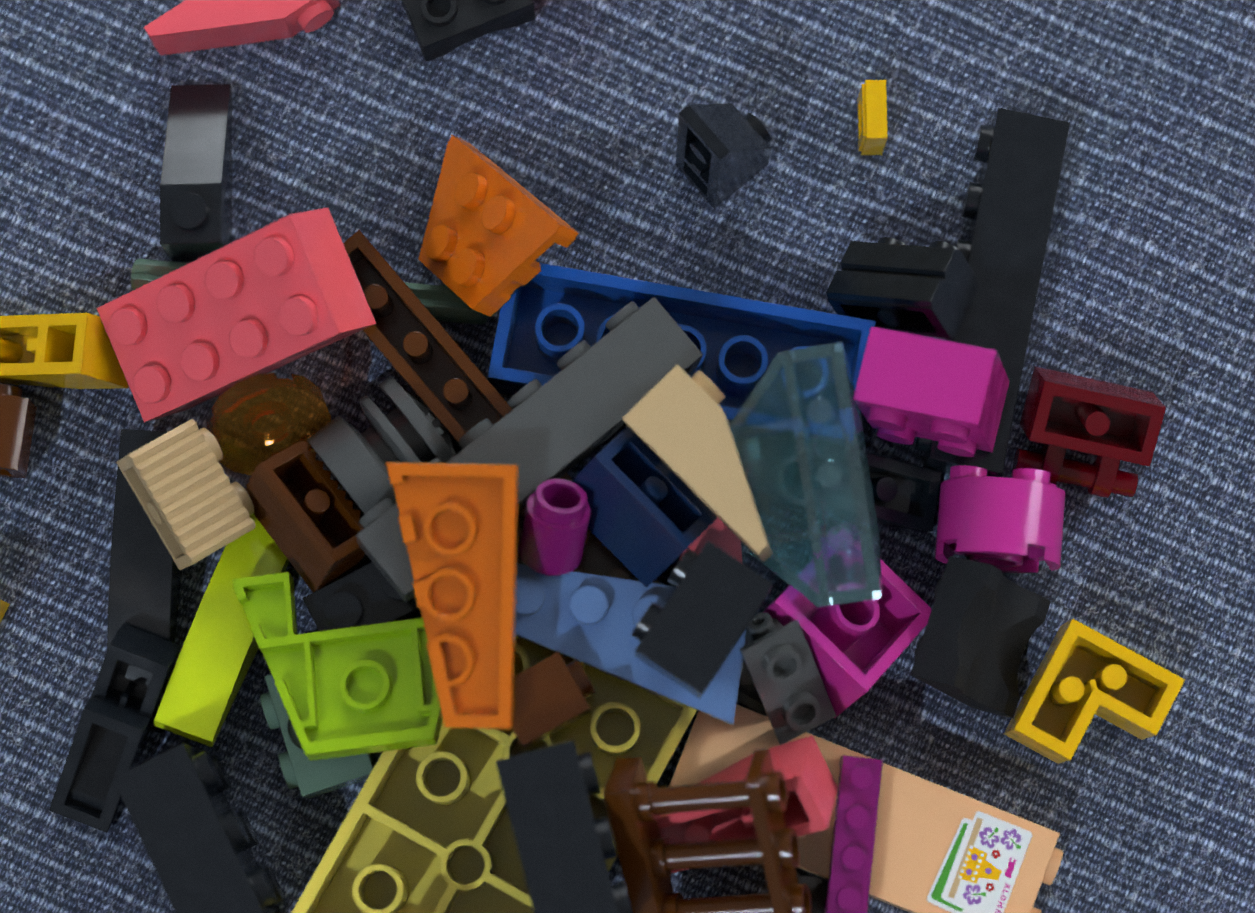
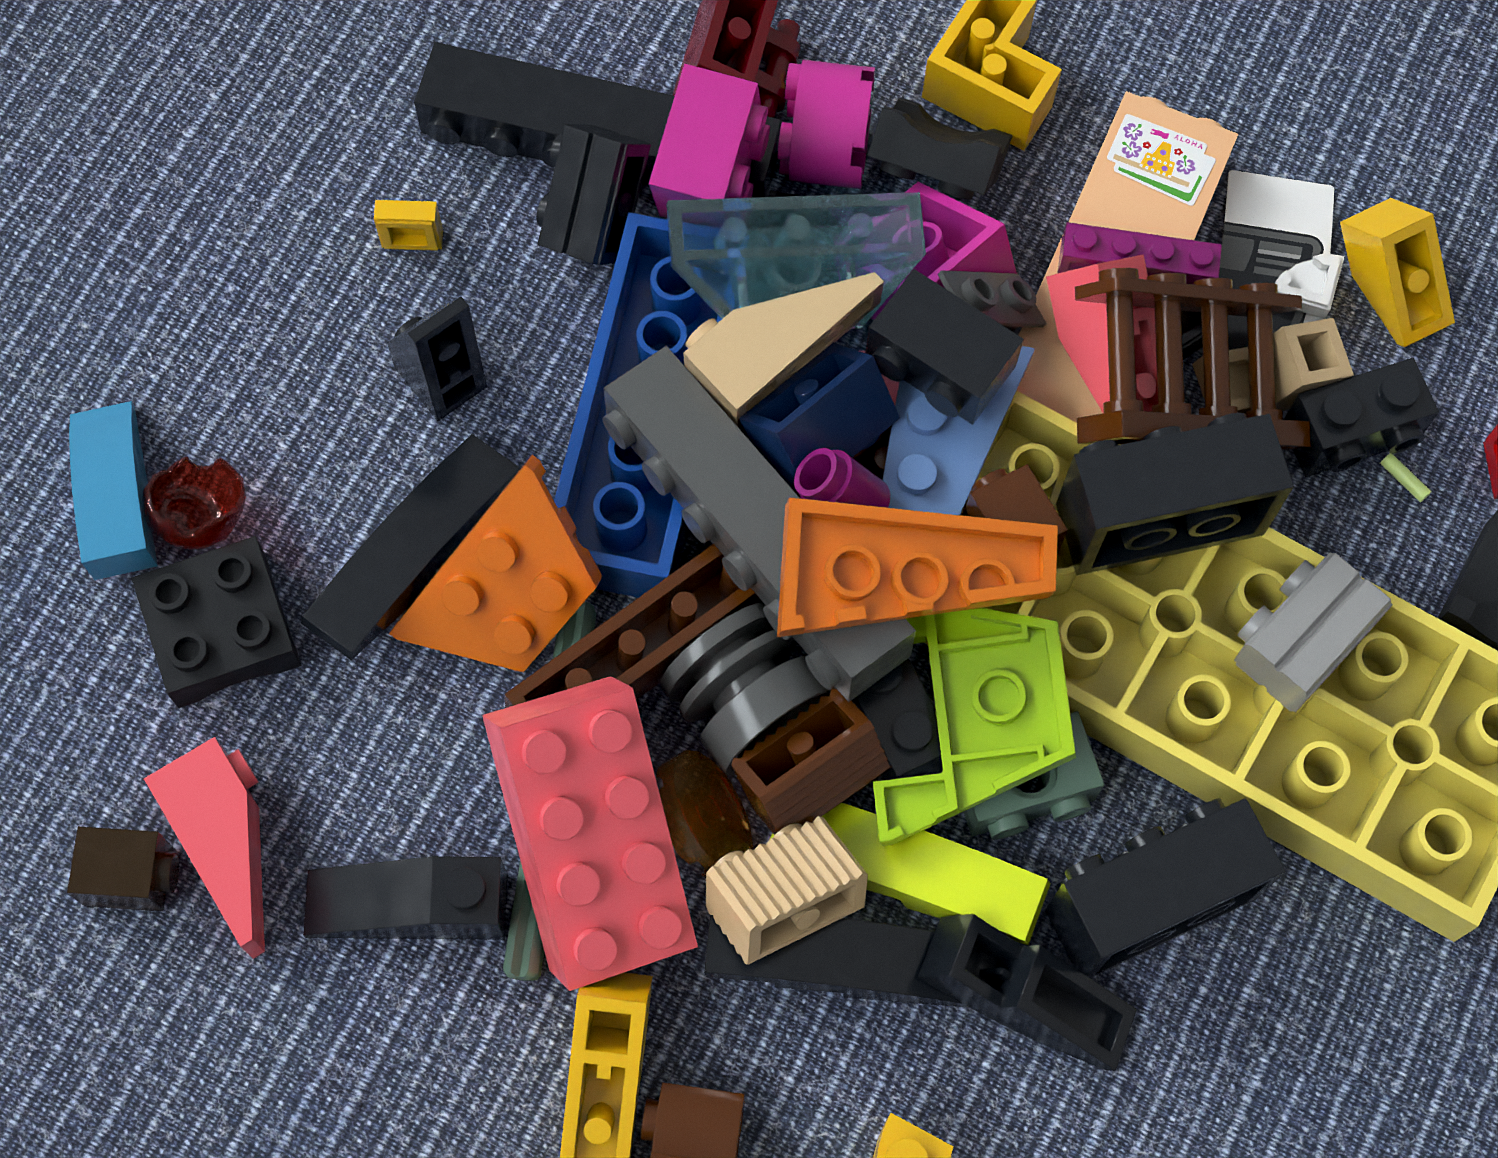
camera: 90 degrees left, 10 degrees down
(535, 147) = (408, 548): none -> black slope

